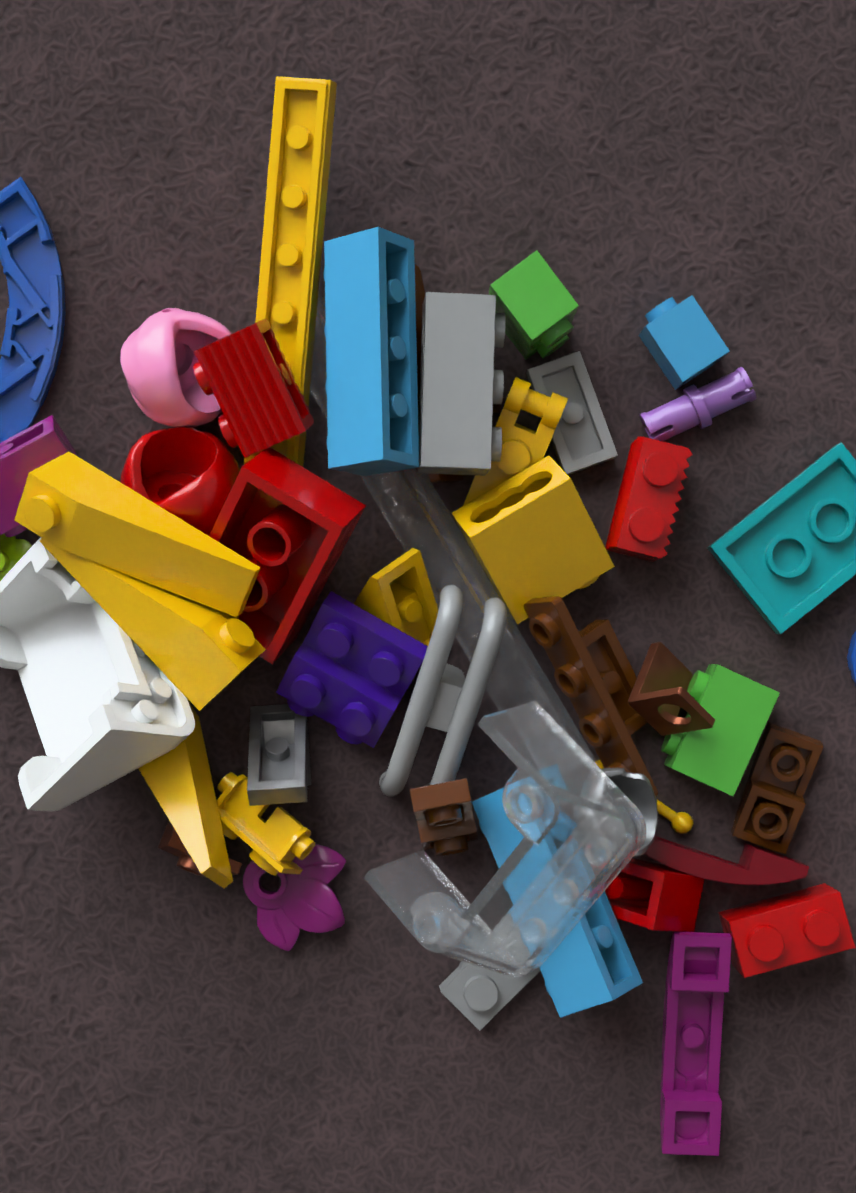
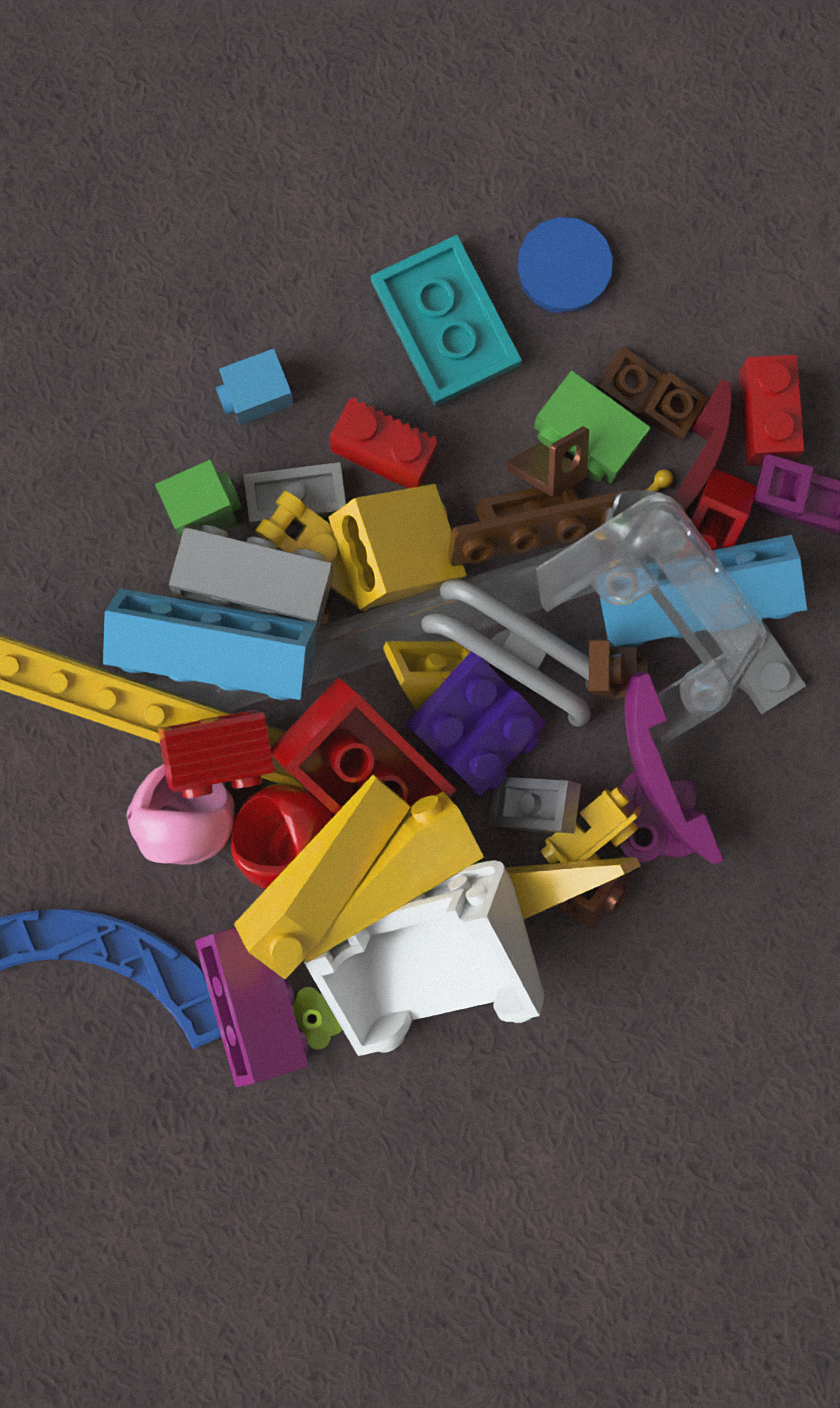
camera: 80 degrees left, 5 degrees down
(395, 854) = (641, 713): none -> magenta slope
(698, 406) = (312, 386): medium lavender pin -> none

